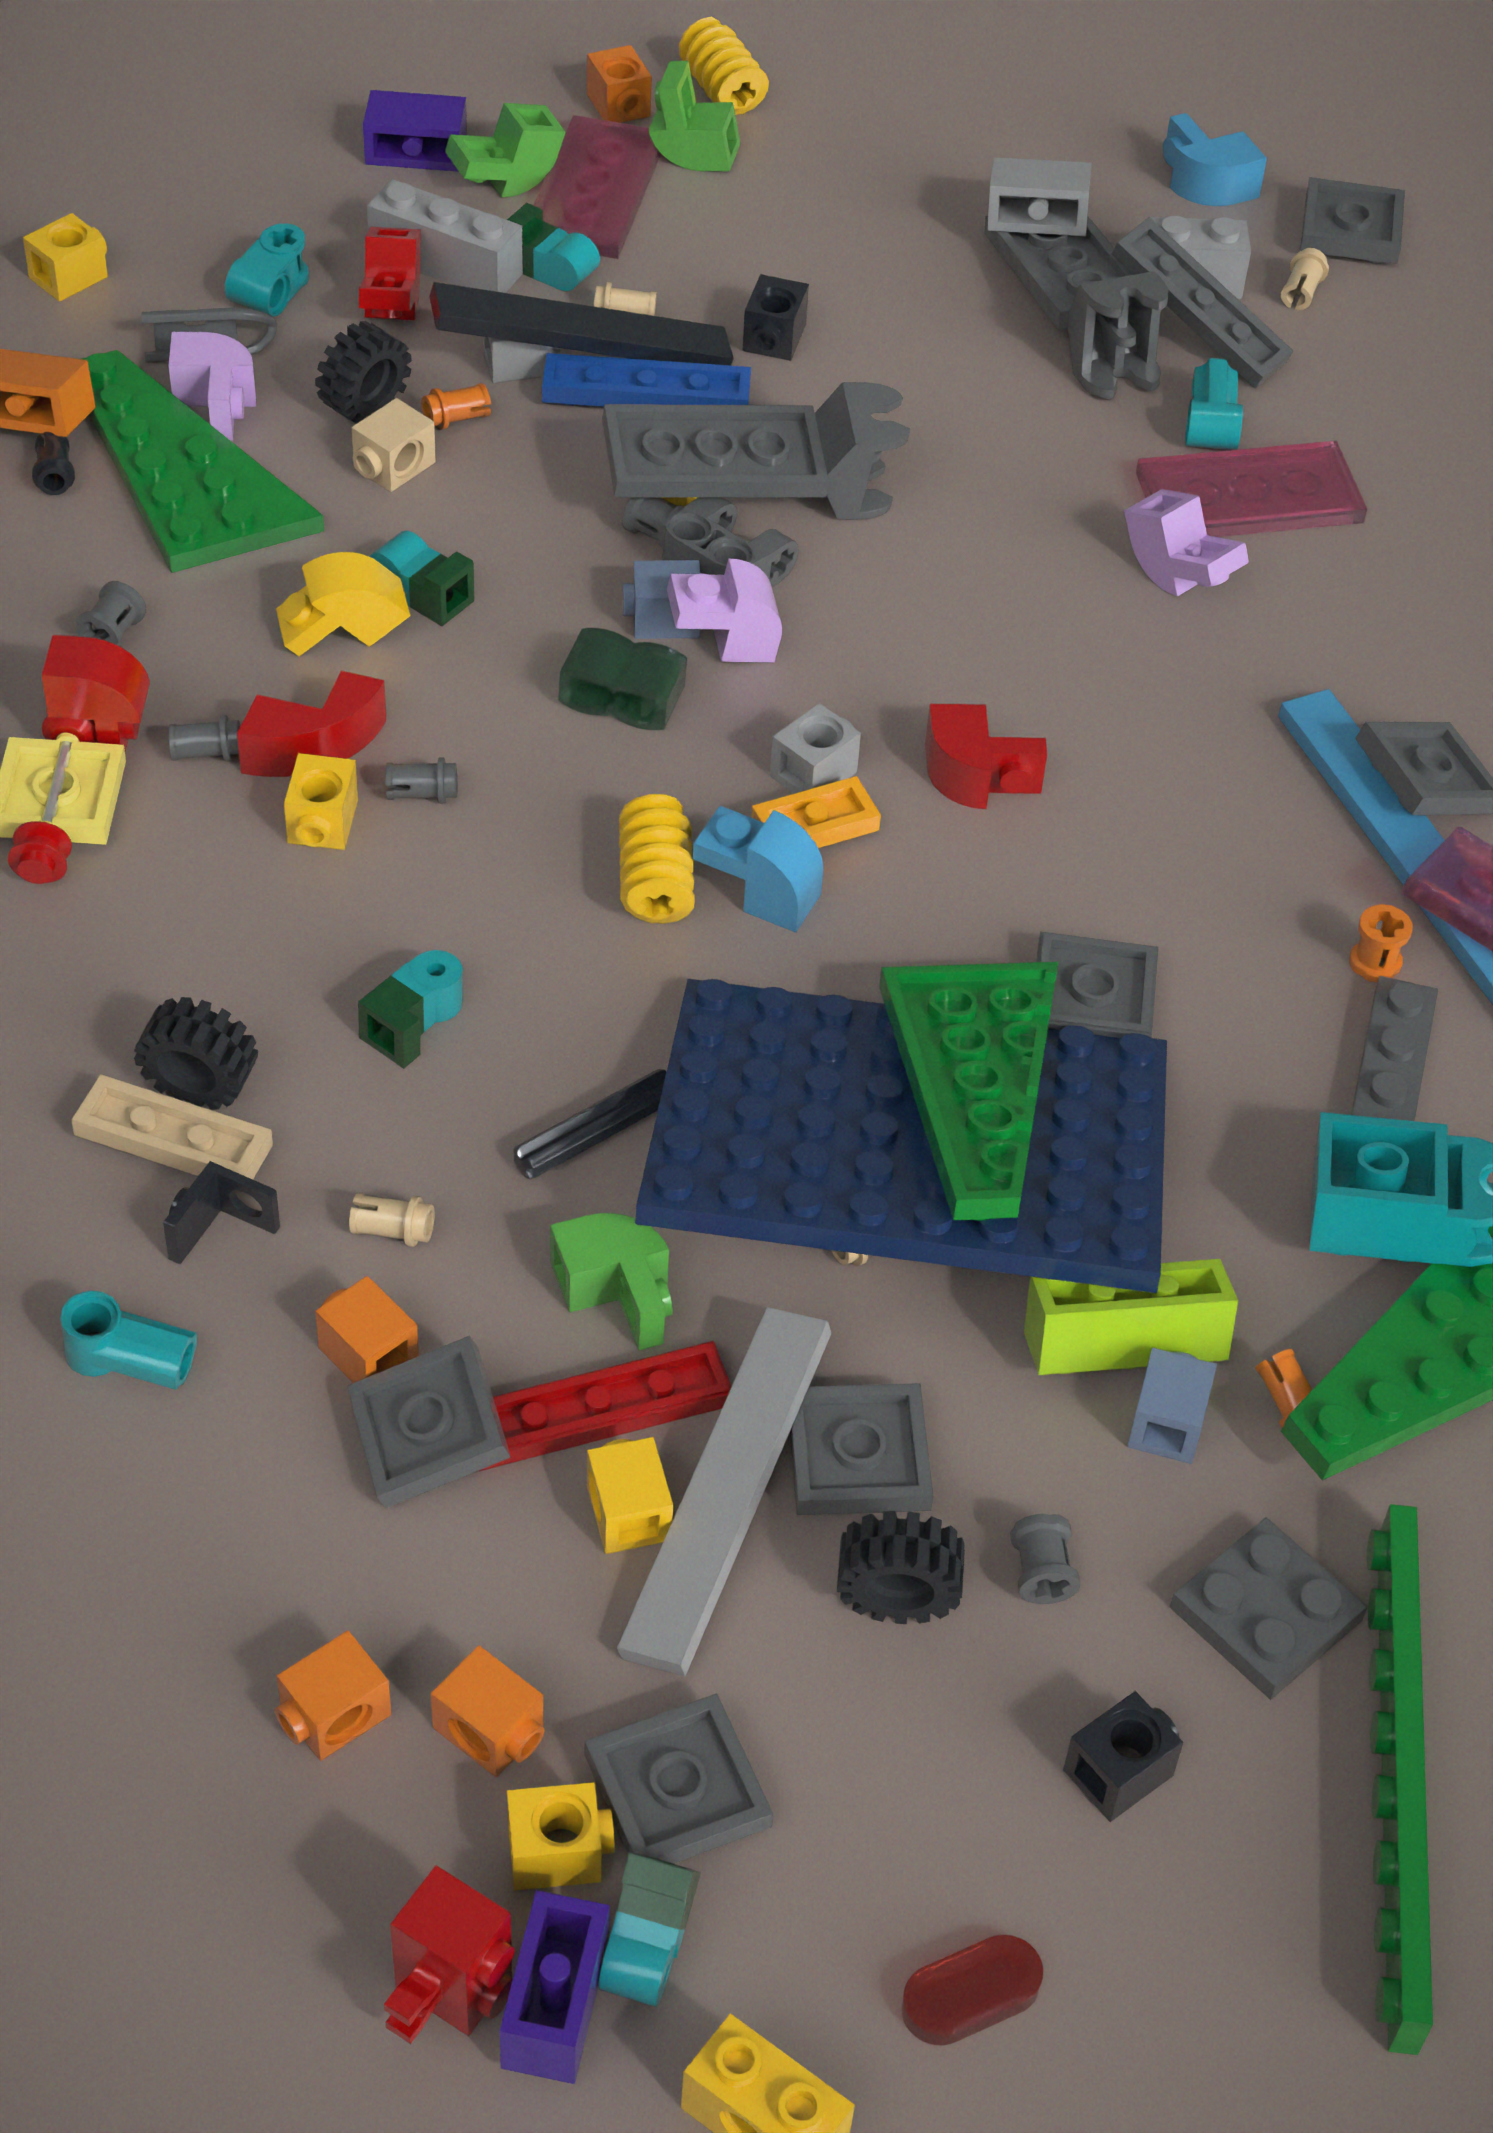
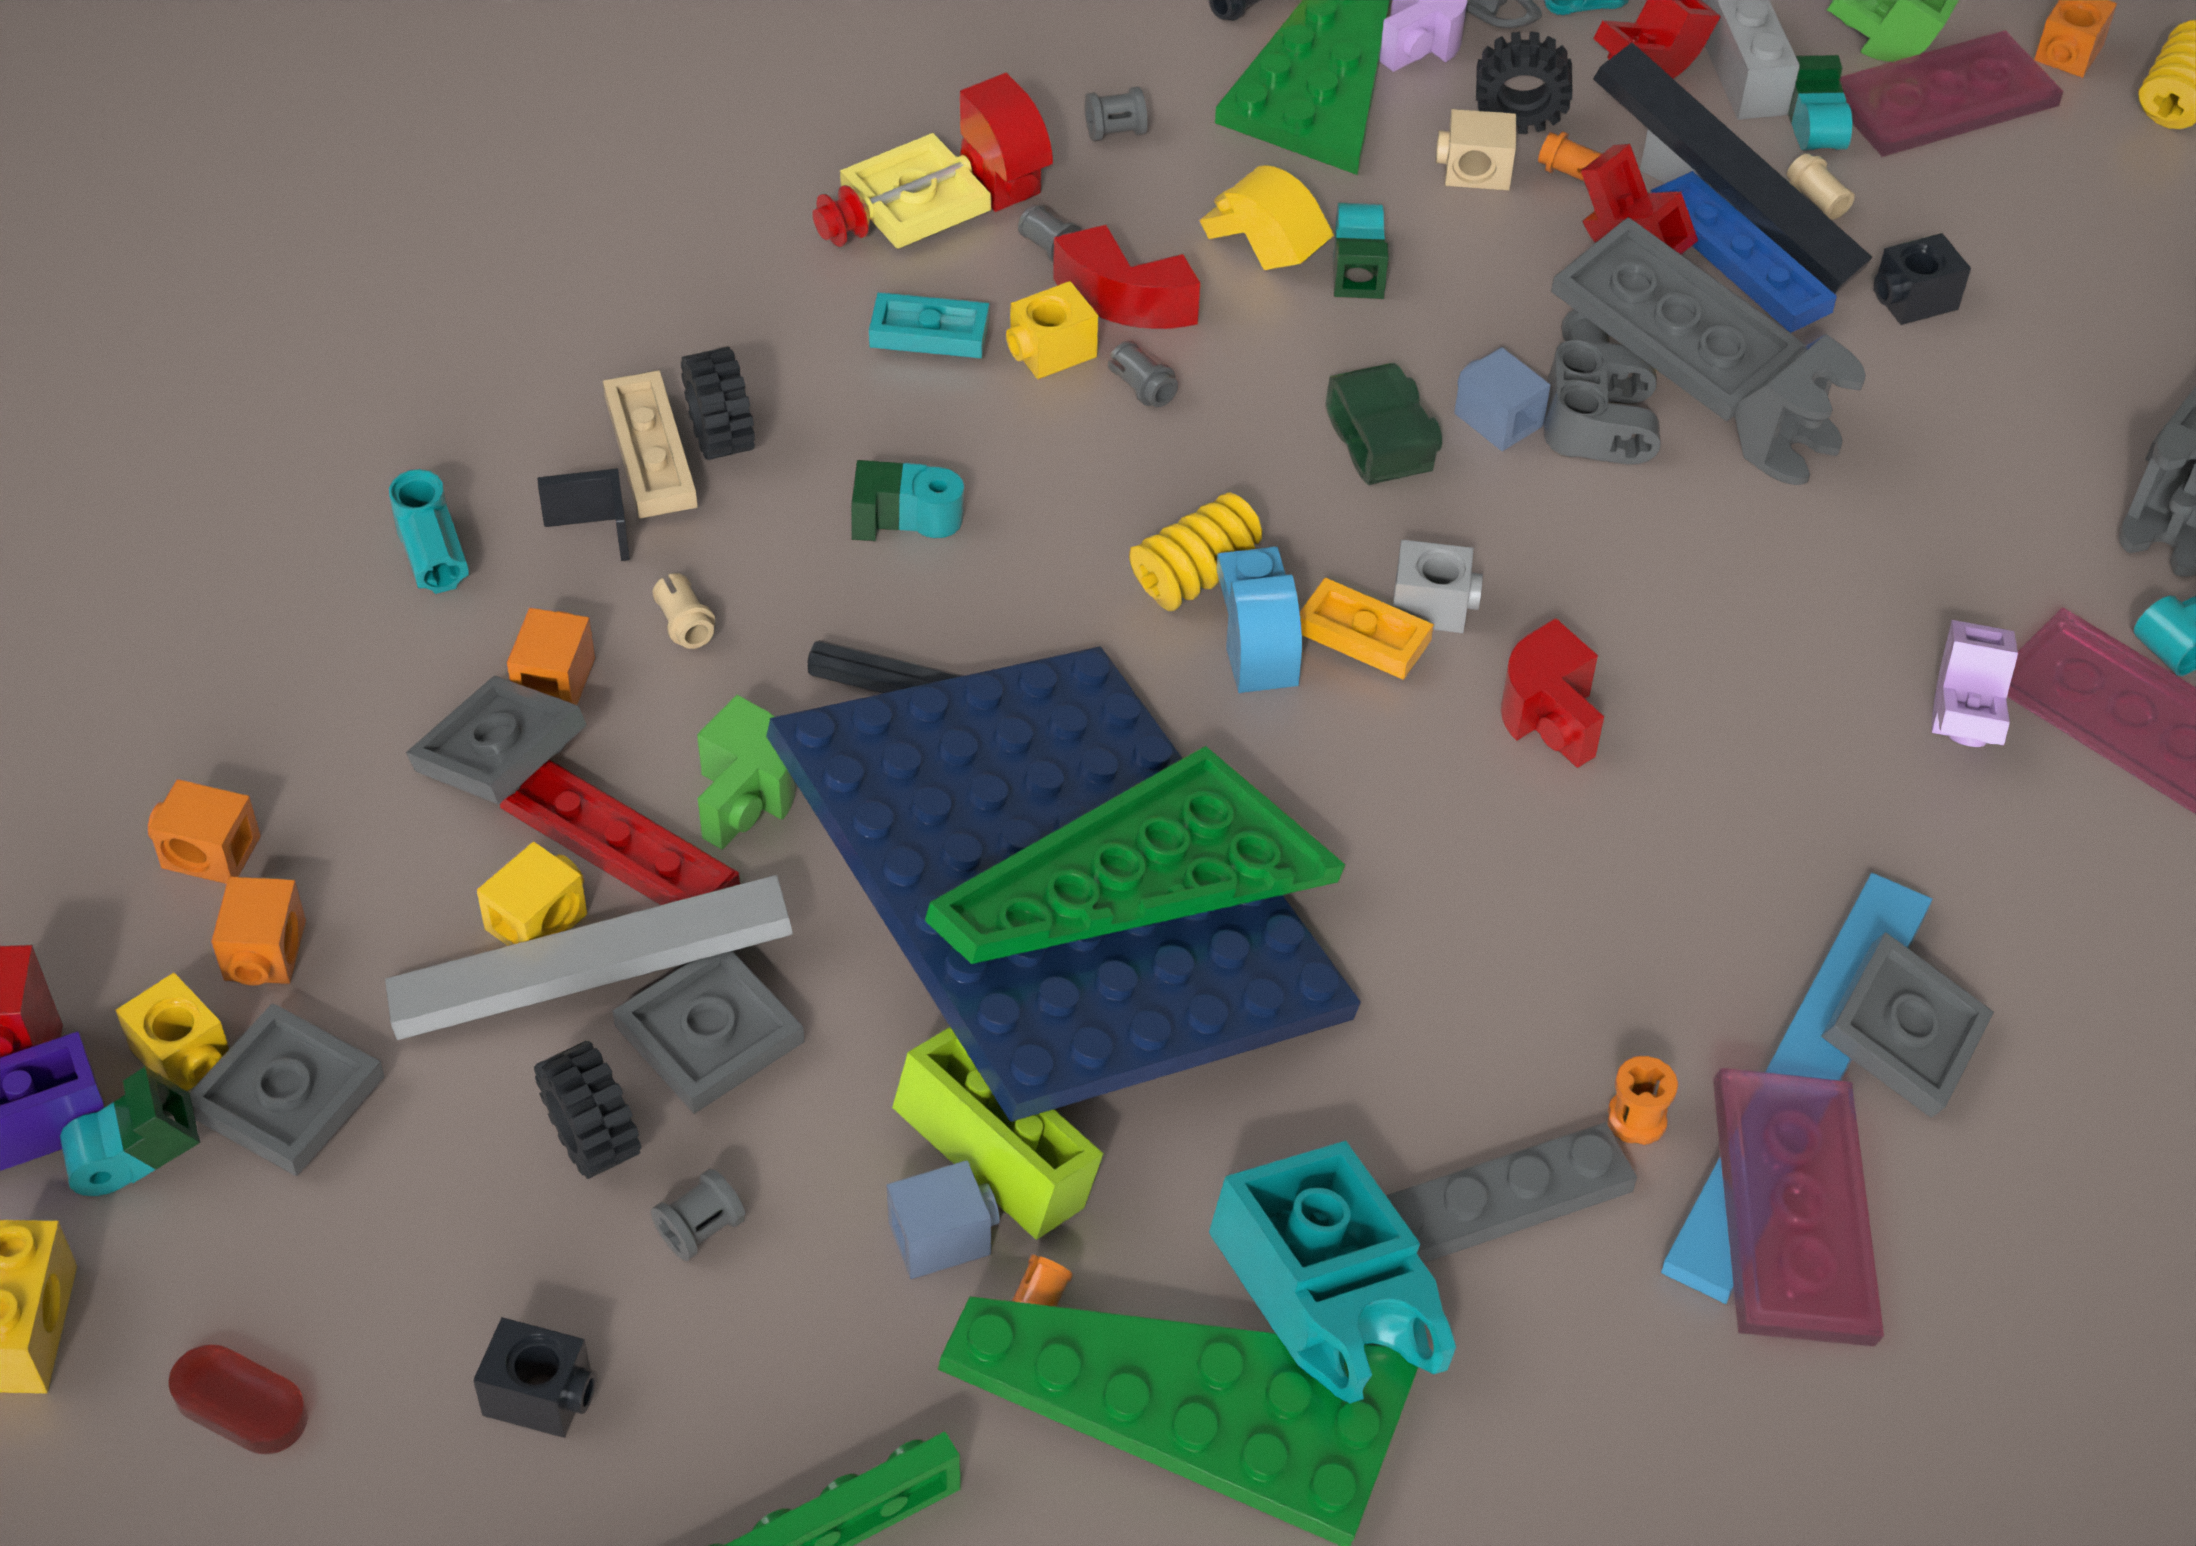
camera: 55 degrees right, 0 degrees up
(227, 874) = (929, 325): none -> teal plate
(559, 417) = (1620, 193): none -> red brick
(692, 132) = (2074, 99): bright green brick -> none
(734, 605) = (1528, 433): lavender brick -> none
(1101, 984) = (1372, 921): dark grey plate -> none
(1268, 1607) = (789, 1412): dark grey plate -> none

